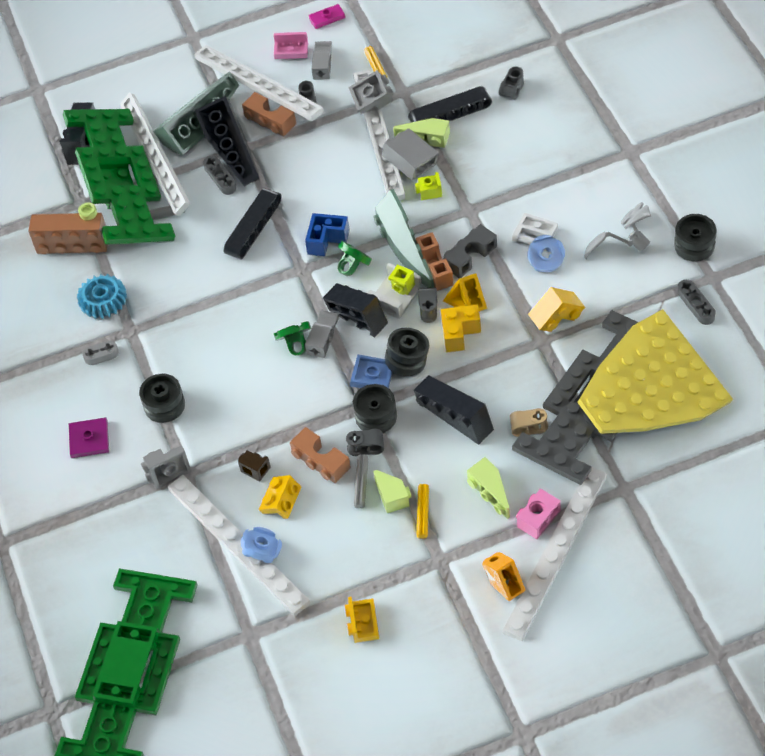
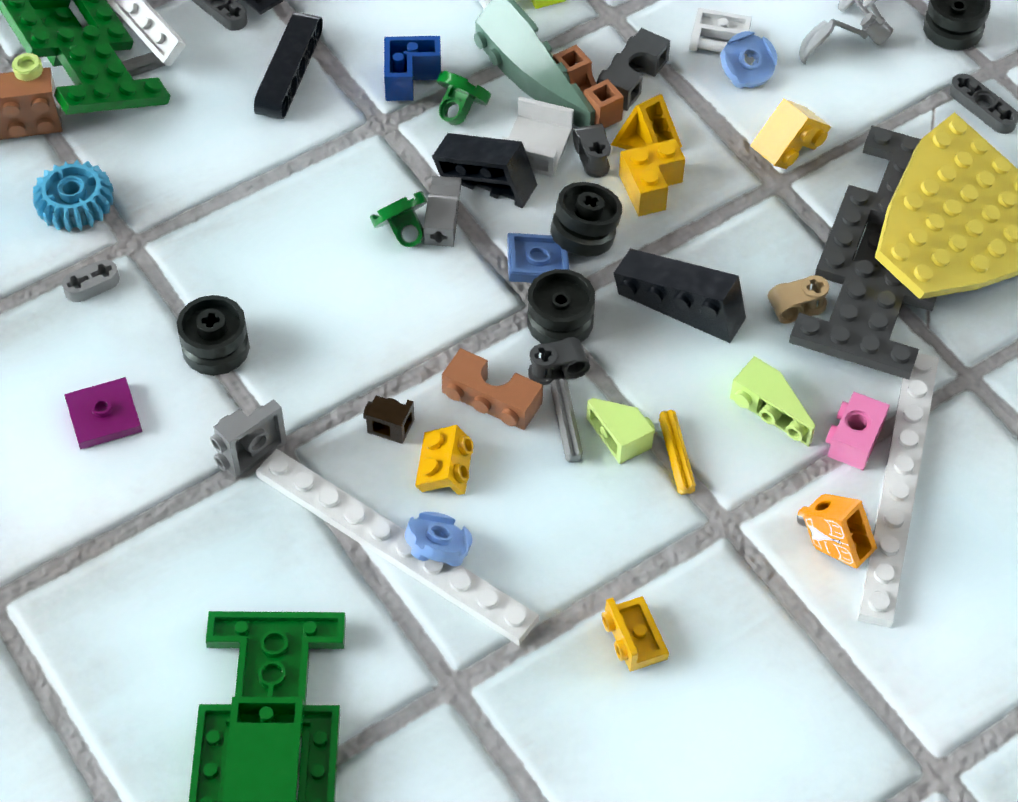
camera: 20 degrees left, 0 degrees up
(401, 284) = (548, 125): neon yellow brick -> none

